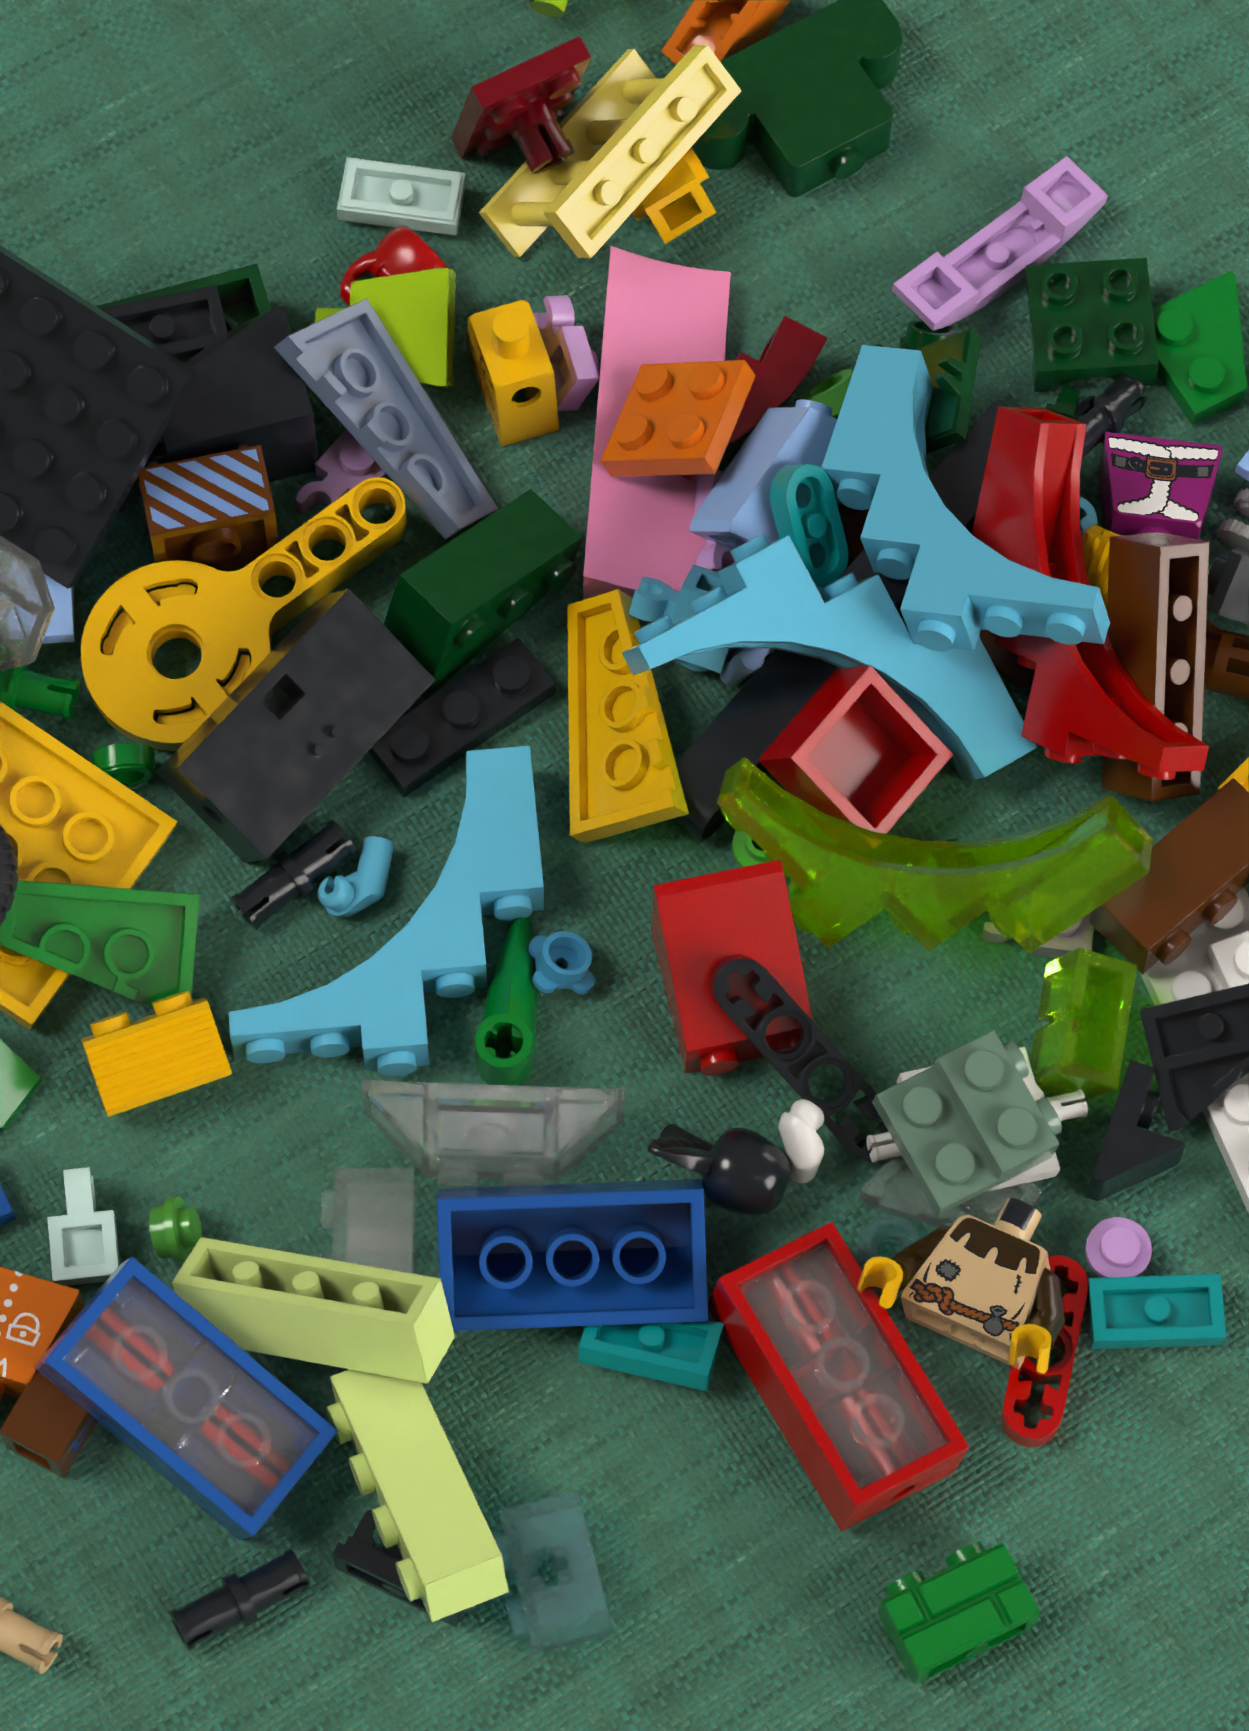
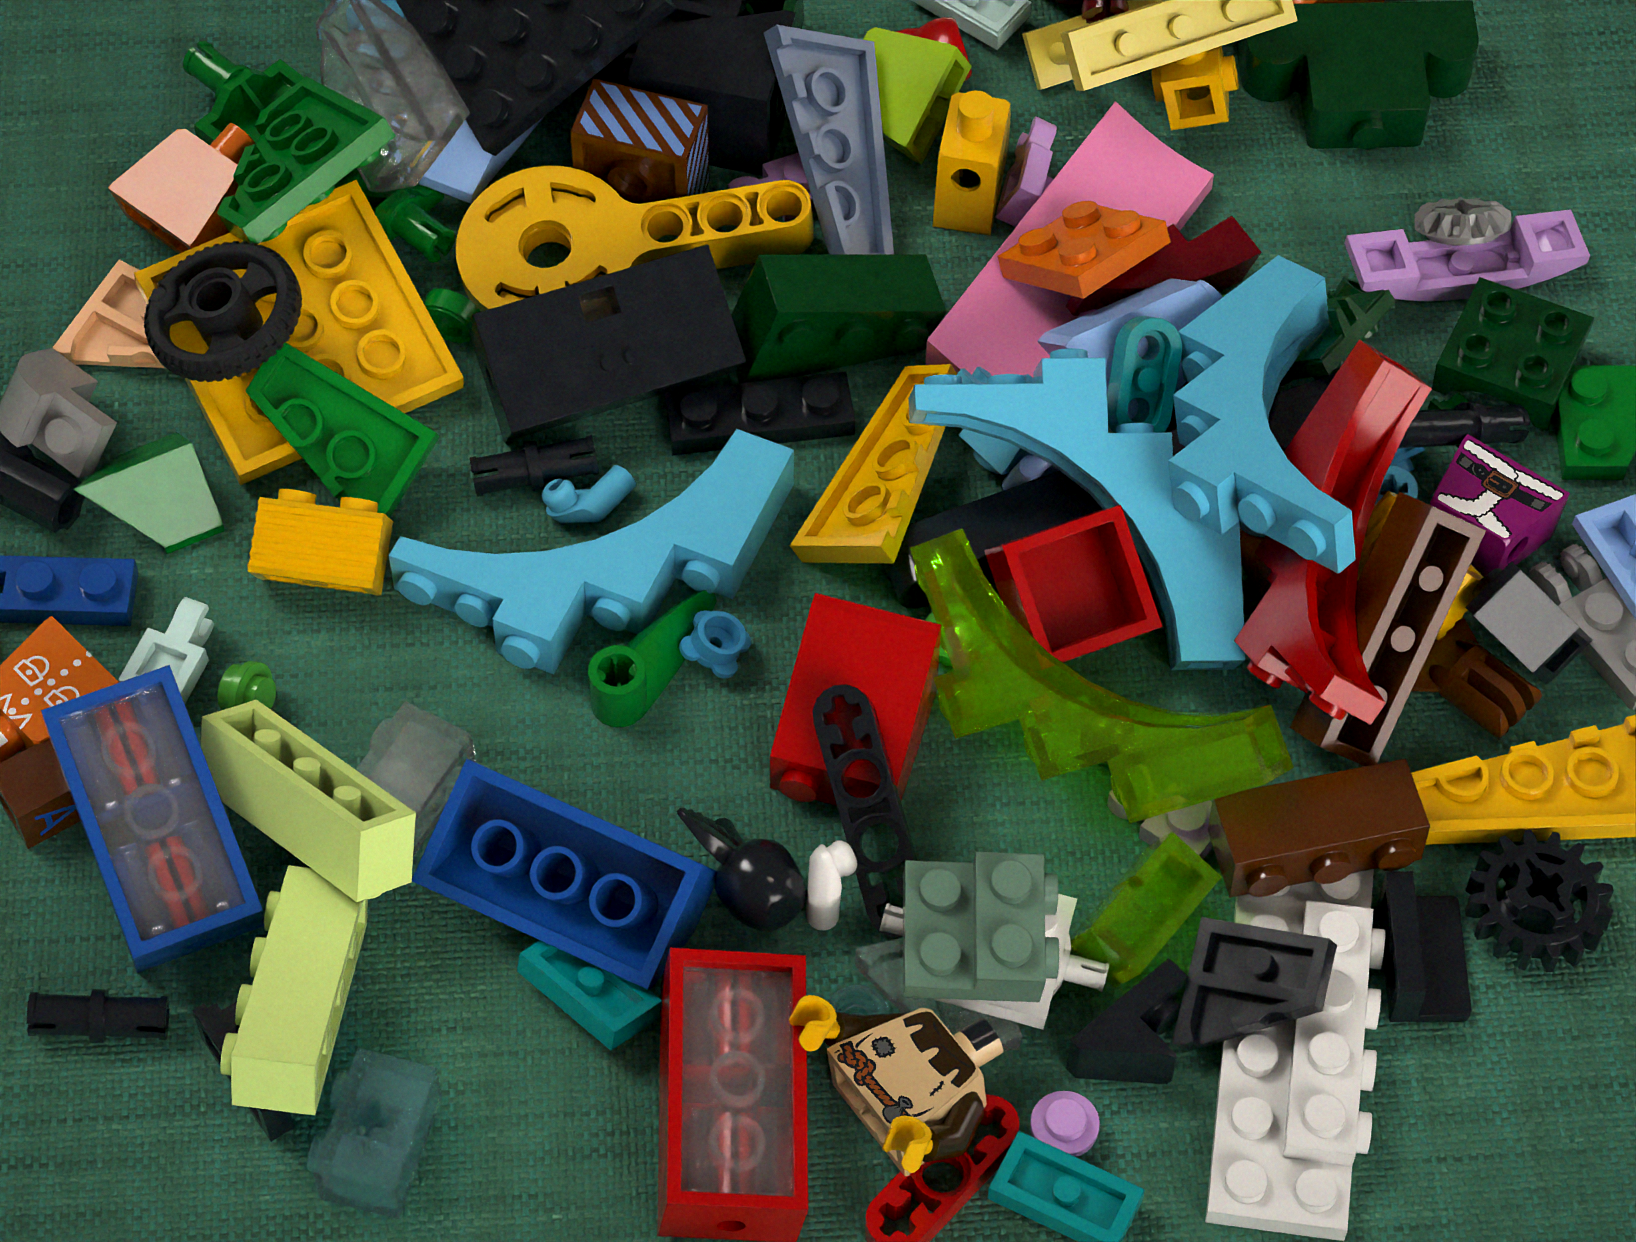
camera: 30 degrees right, 10 degrees down
(492, 1129) = (574, 743): clear wedge -> none
(978, 214) = (1462, 221): none -> light grey gear

